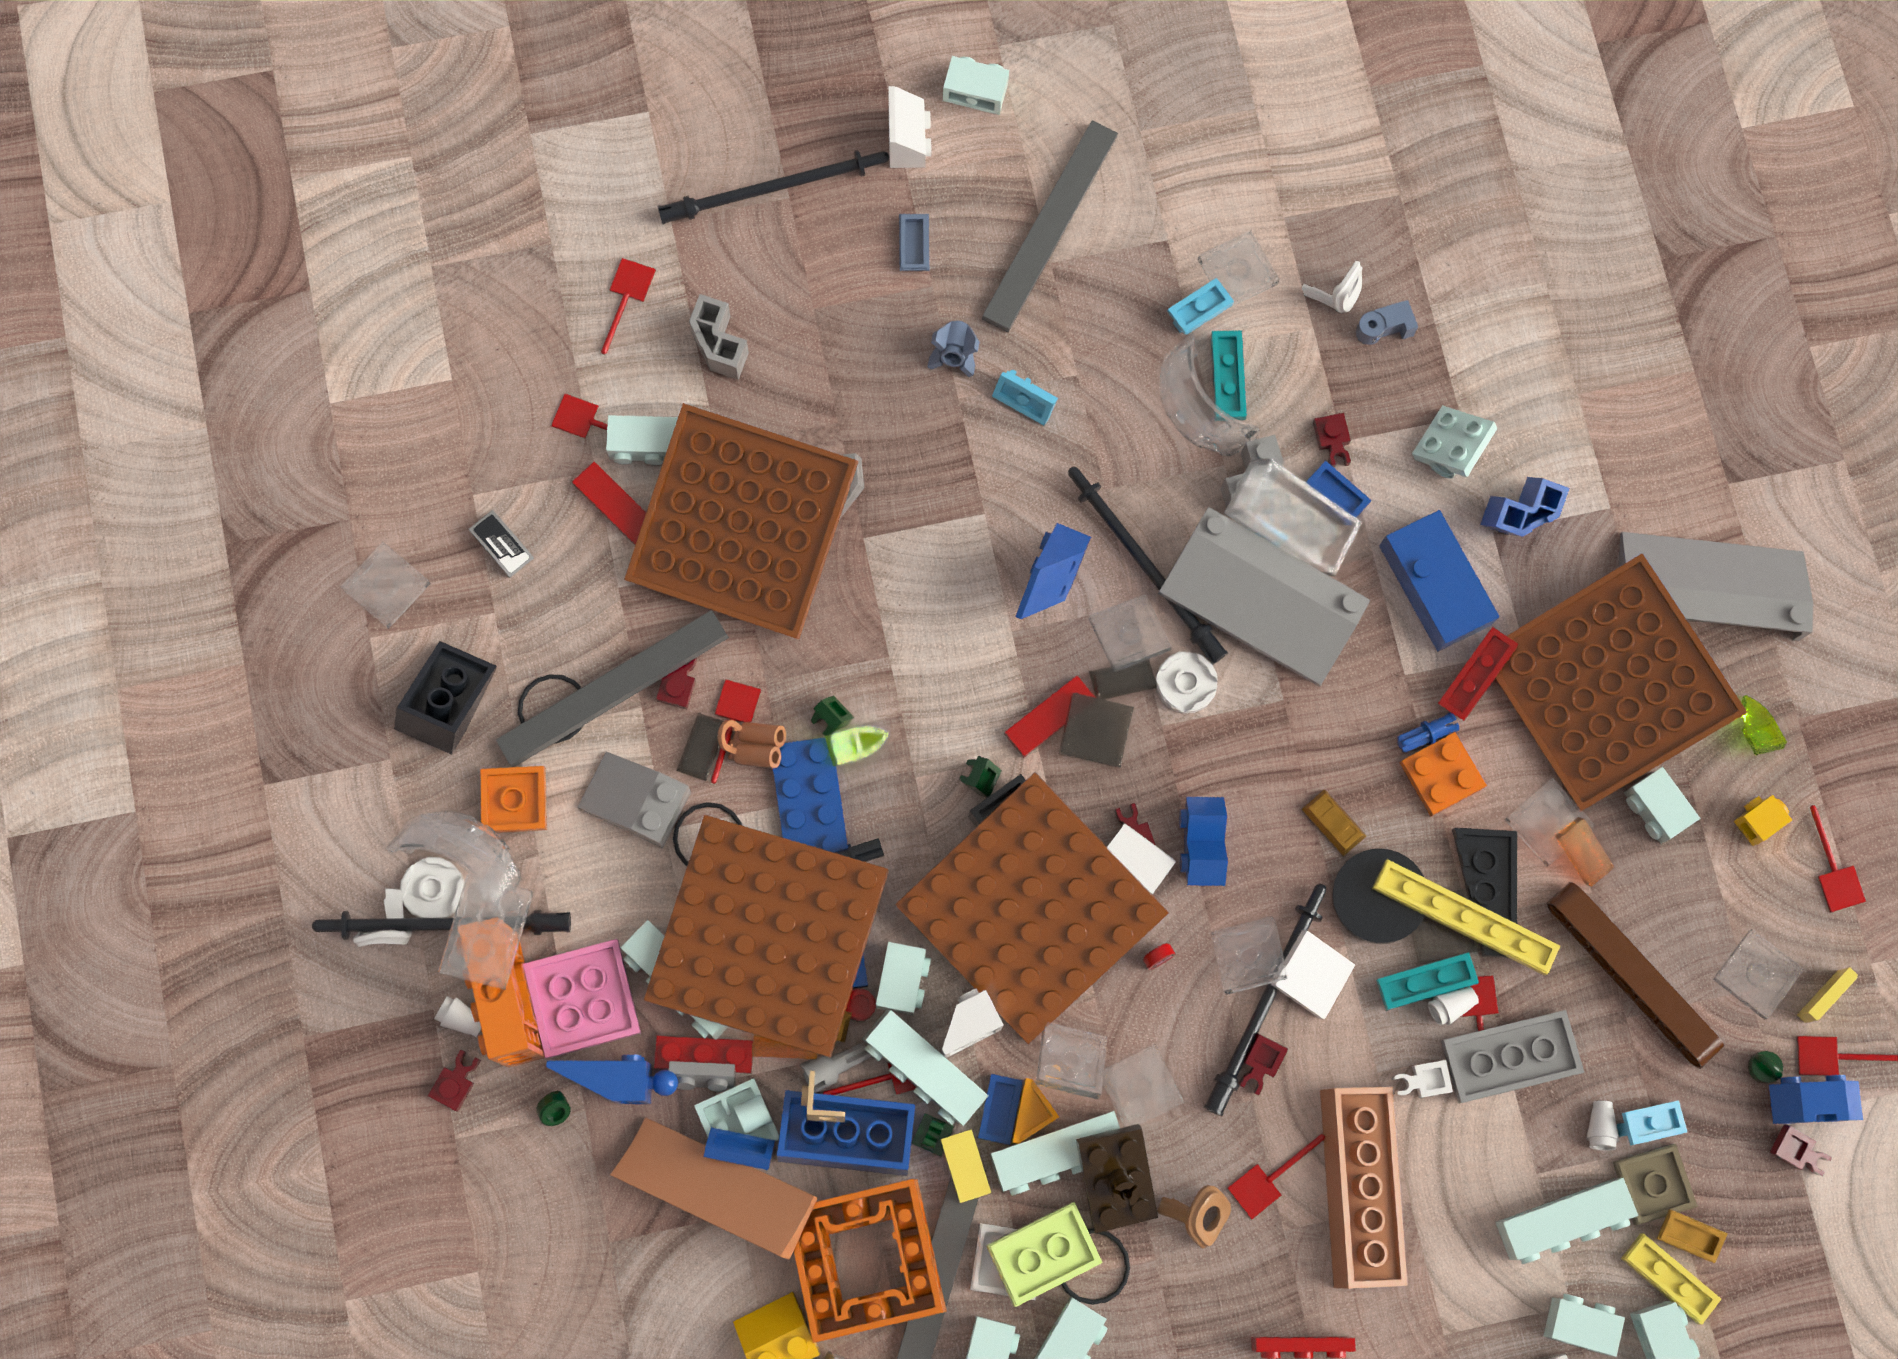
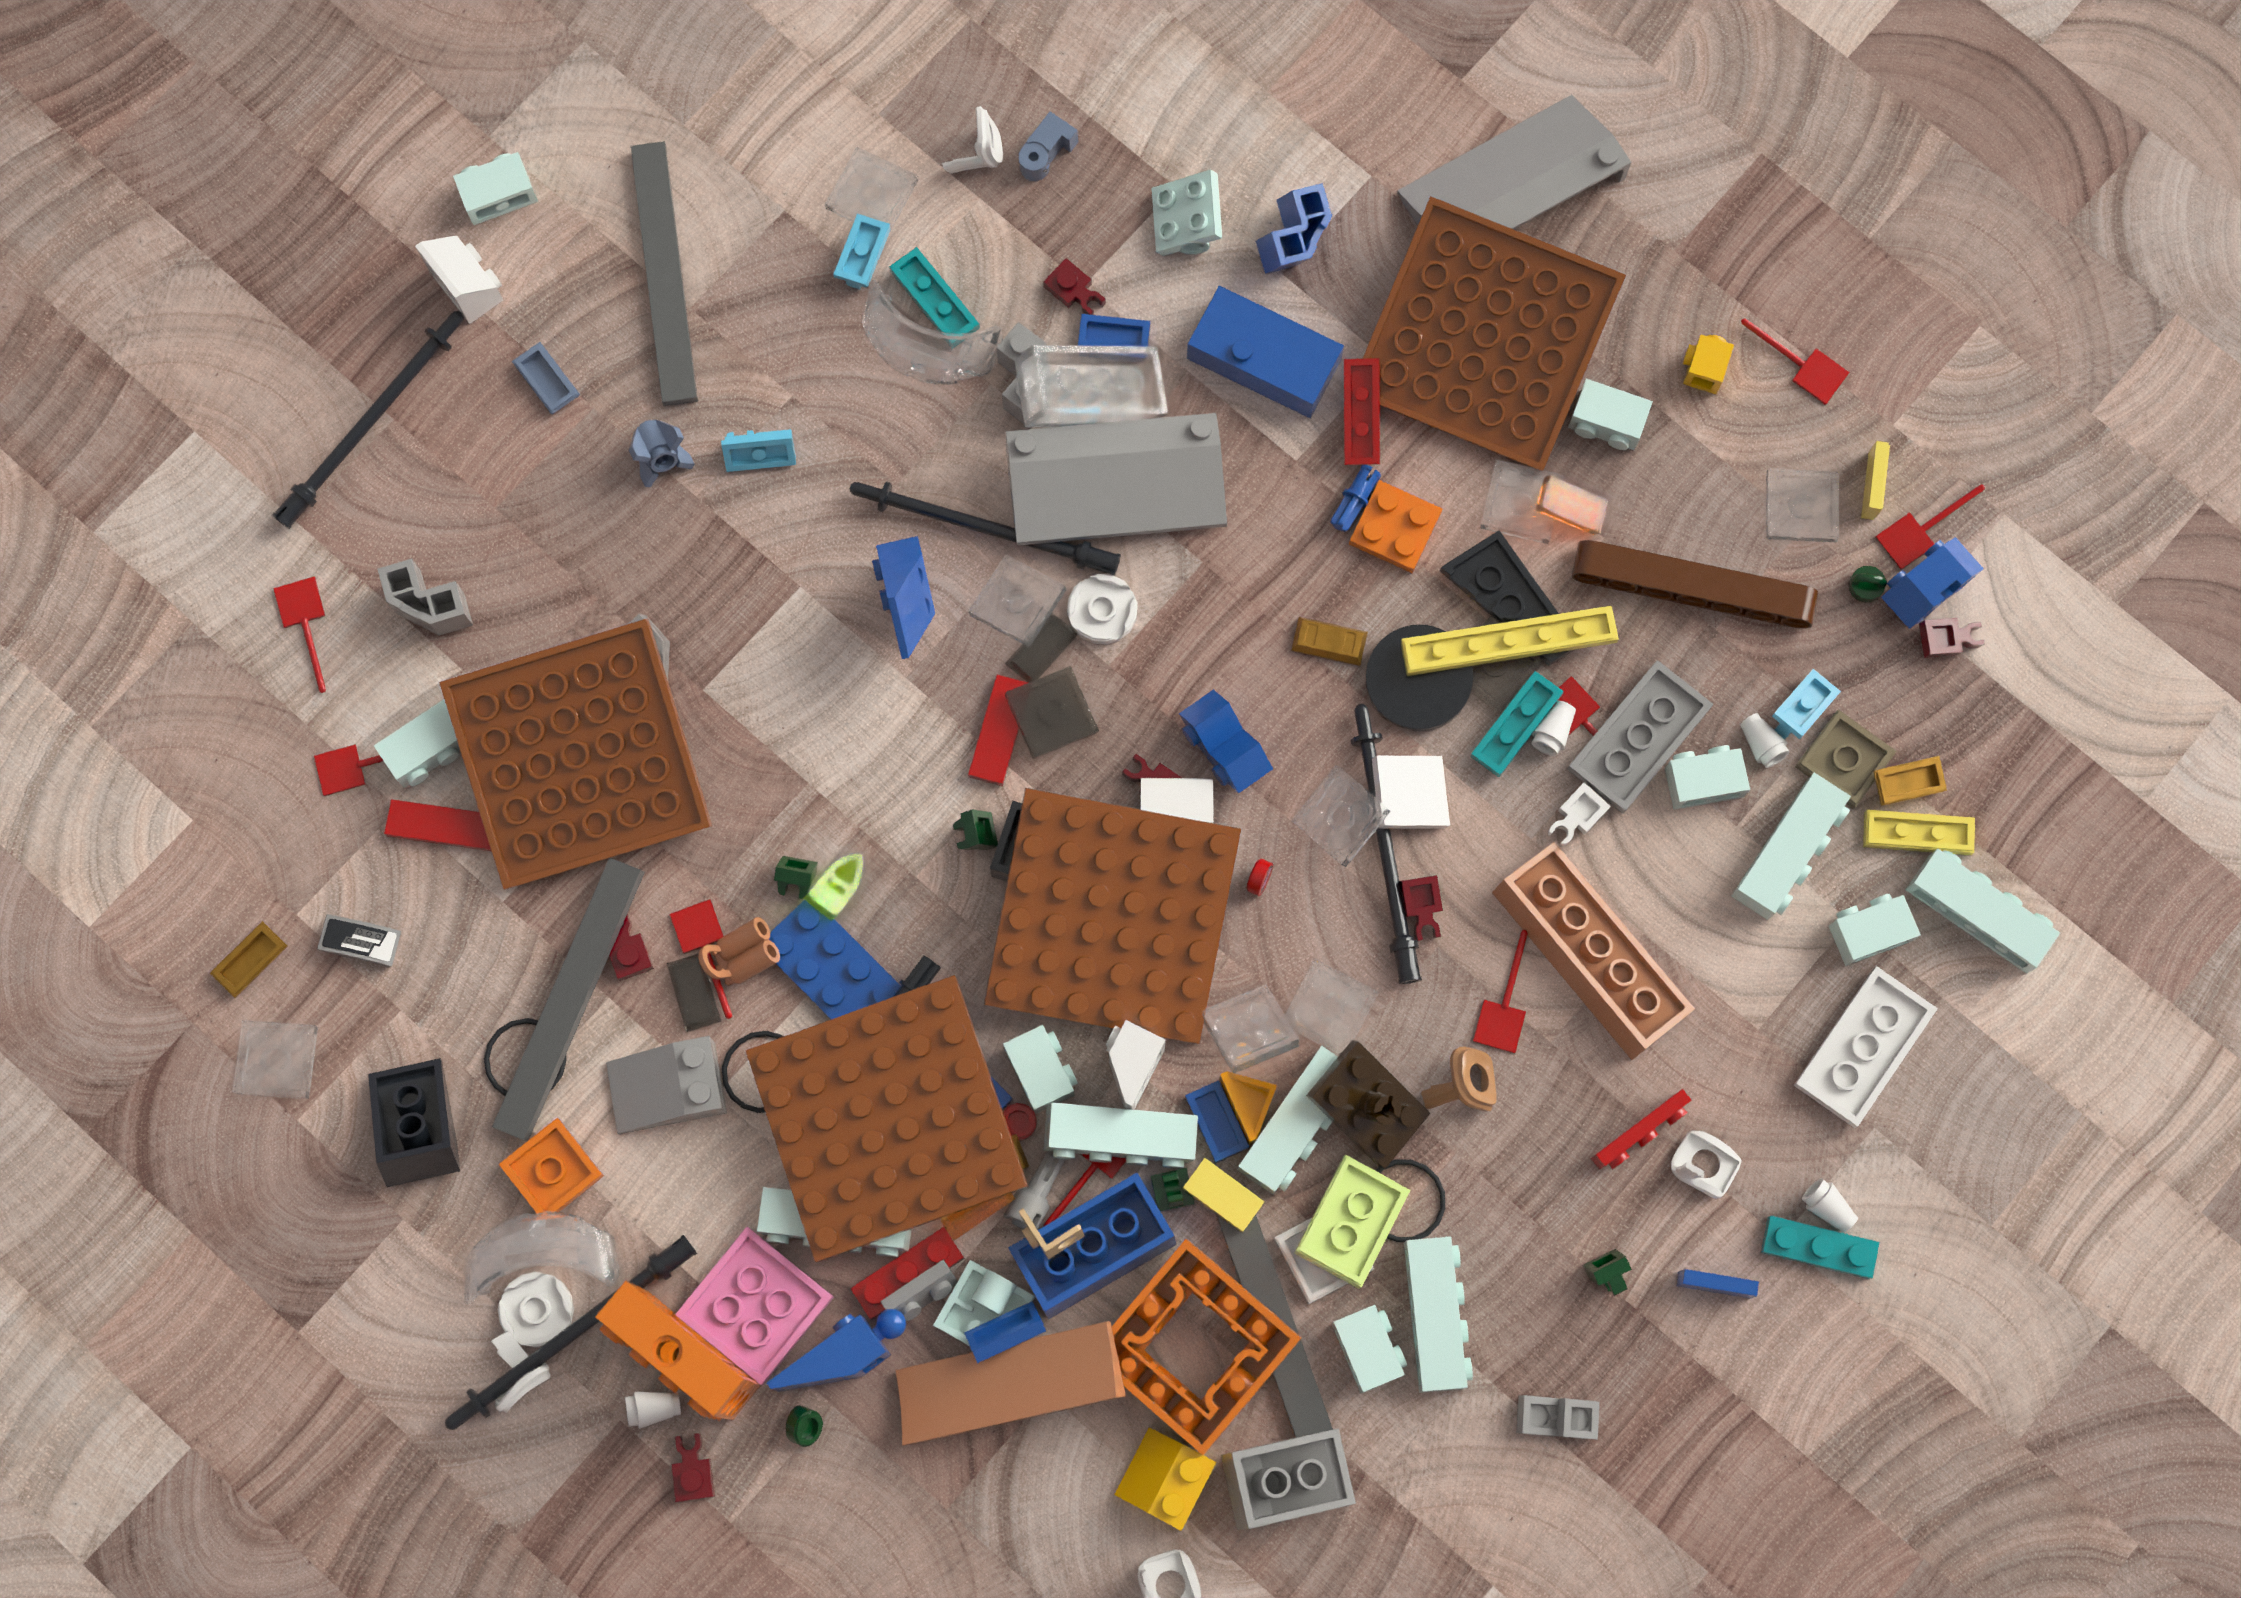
camera: 30 degrees left, 0 degrees up
(418, 503) = (248, 959): none -> pearl gold tile
(485, 931) = (624, 1301): clear plate -> none
(1540, 1123) = (1707, 777): none -> light aqua brick
(1761, 728) = (1648, 282): clear neon green plate -> none

